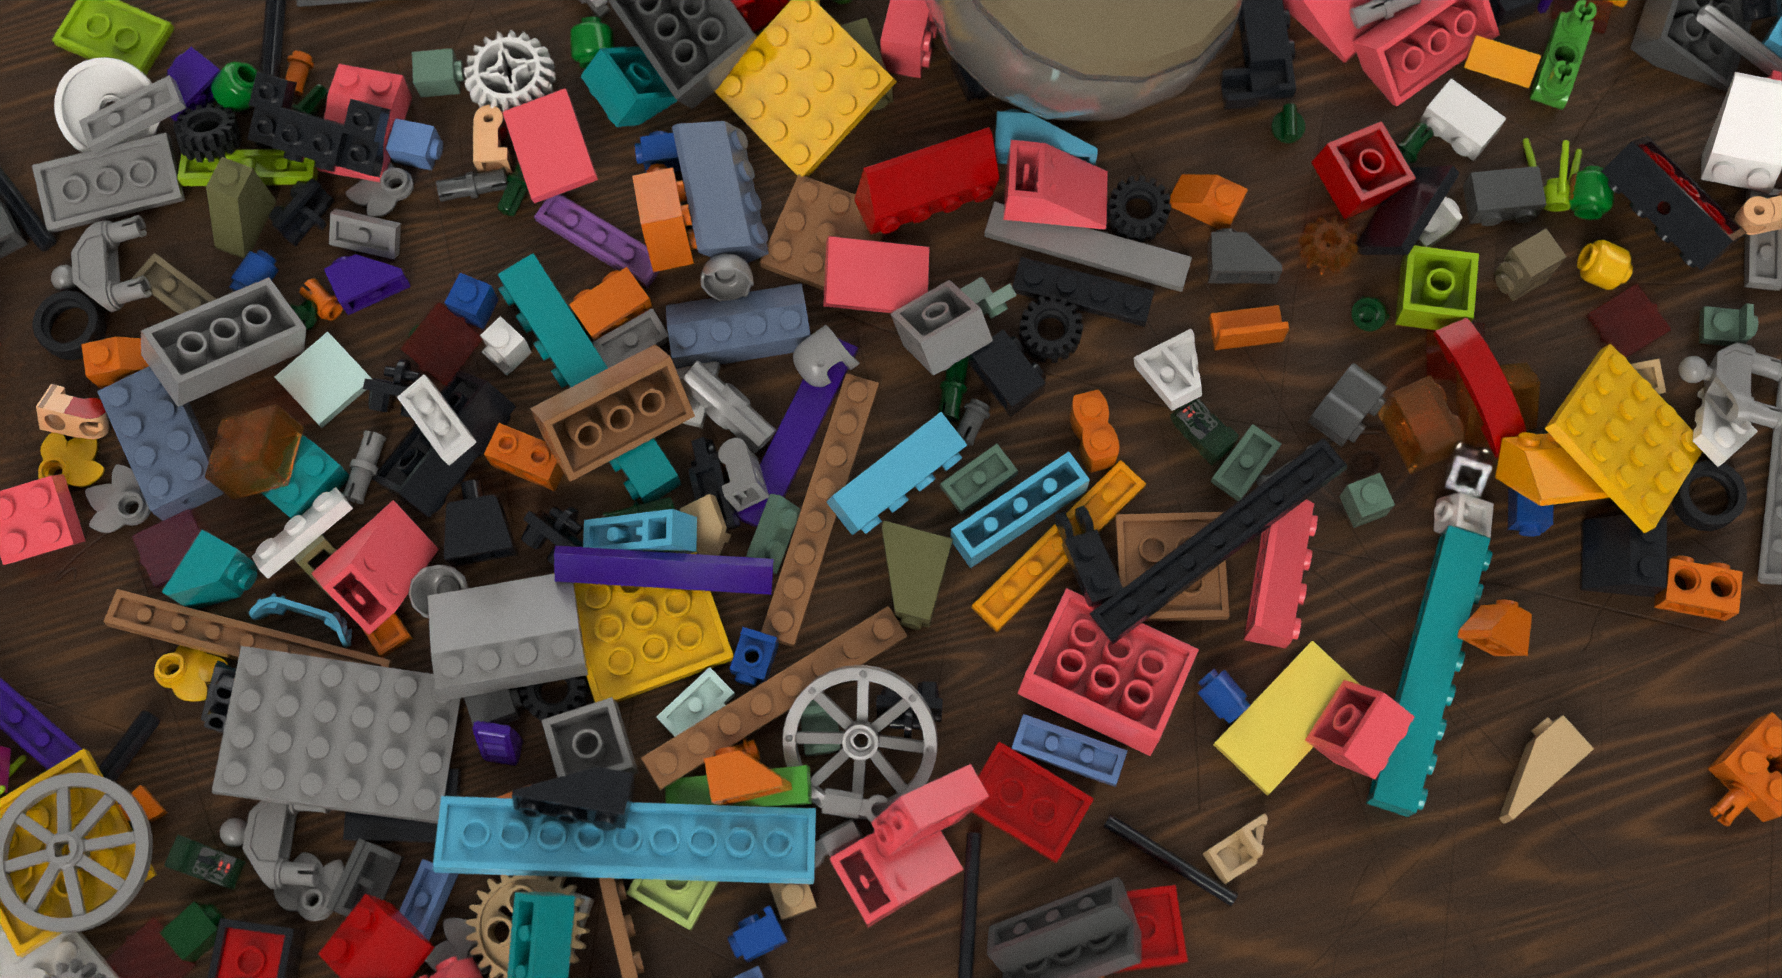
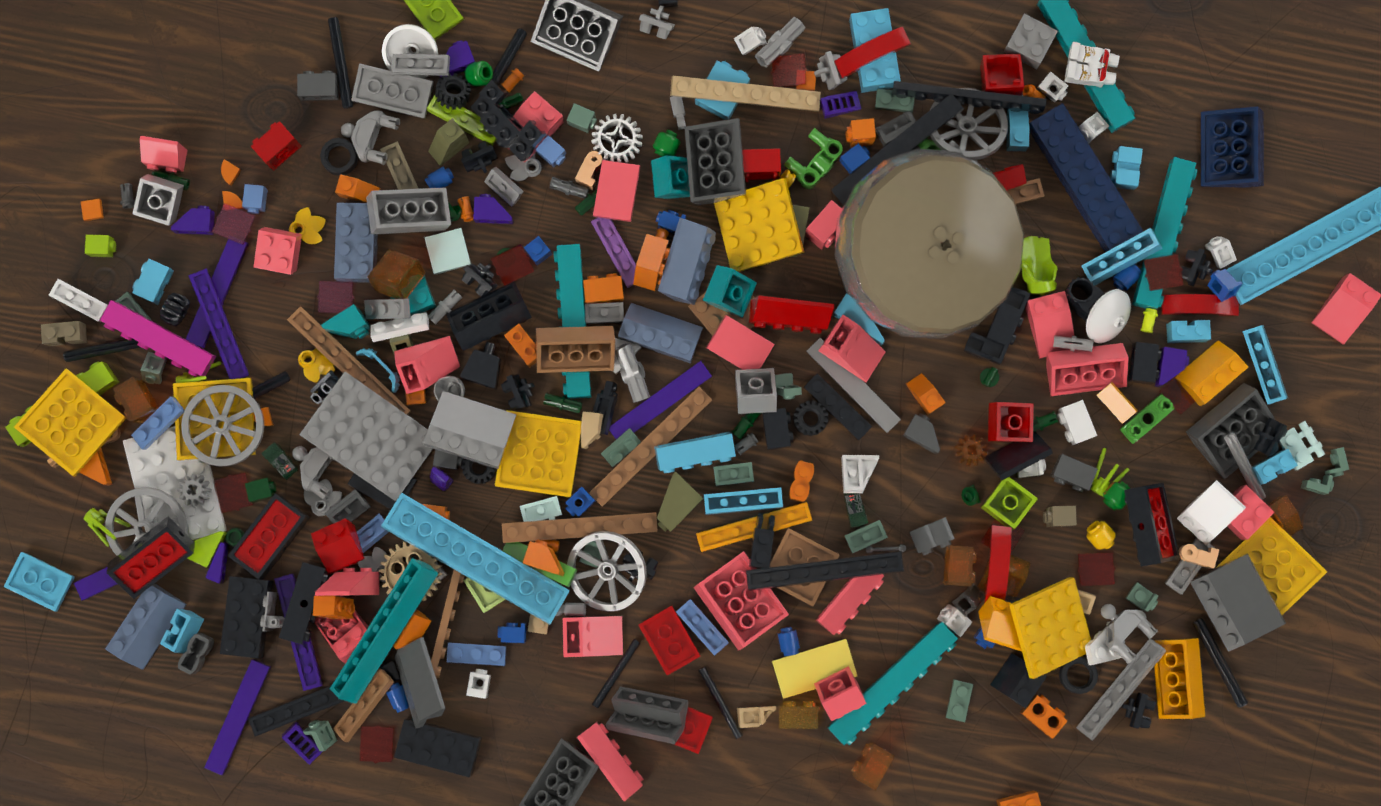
camera: 30 degrees right, 10 degrees up
(72, 415) = (319, 206): light nougat leg -> none
(115, 500) = (319, 258): light grey plate -> none
(266, 512) = (387, 308): none -> light grey plate
(436, 419) = (489, 308): white plate -> none
(504, 346) = (541, 282): white brick -> none
(587, 796) = (469, 530): black slope -> none
(589, 739) = (481, 503): light grey brick -> none
(646, 531) = (556, 415): medium azure slope -> none
(663, 570) = (559, 439): dark purple tile -> none
(726, 277) = (666, 307): light grey hair -> none
(745, 475) = (622, 411): light grey leg -> none
(812, 199) = (729, 291): none -> teal slope
(818, 354) = (690, 373): light grey helmet -> none
(850, 804) = (587, 598): light grey bar -> none
(929, 809) = (620, 621): coral window -> none
(1138, 190) = (897, 372): black tyre -> none
(1247, 327) = (907, 469): orange panel -> none
(1310, 809) = (798, 716): none -> clear yellow bracket
(1367, 500) = (912, 587): sand green brick -> none
(1482, 818) = (872, 765): none -> clear orange brick
(1499, 629) = (935, 682): orange slope -> none
(1543, 762) = (920, 755): tan slope -> none
(1551, 642) = (959, 700): none -> sand green plate

